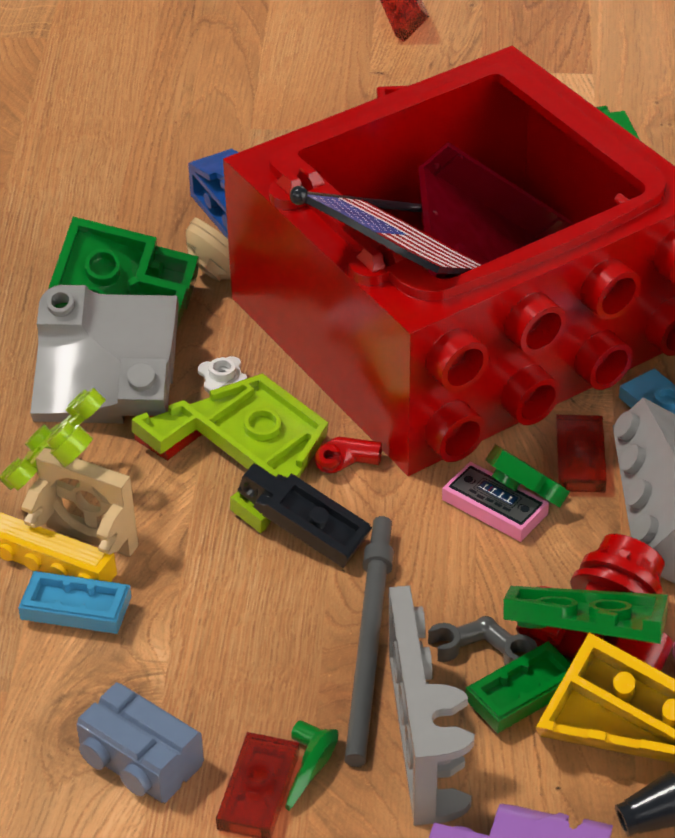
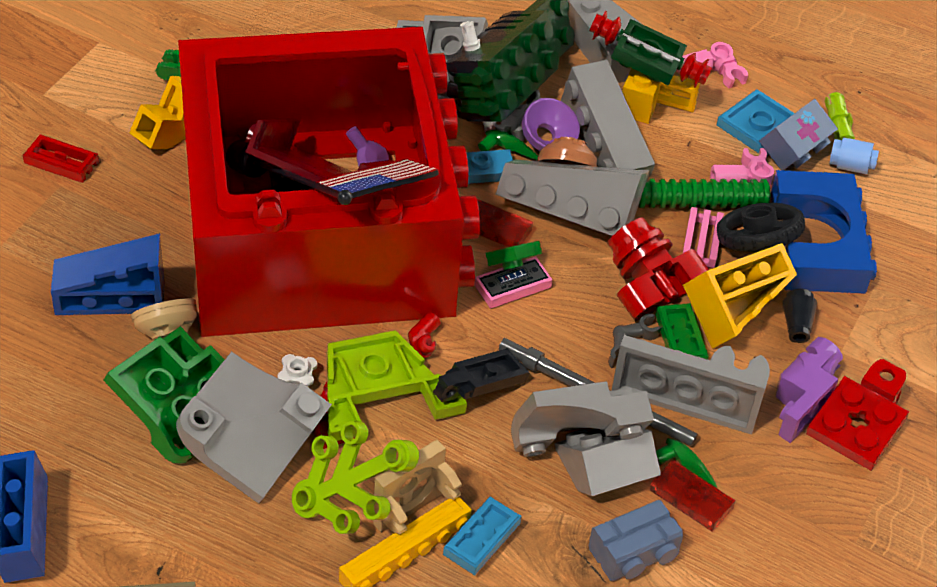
camera: 70 degrees left, 5 degrees up
(255, 672) = (608, 462): none -> light grey slope
(261, 602) = (578, 408): none -> light grey slope
(598, 612) = (679, 264): green wing -> none

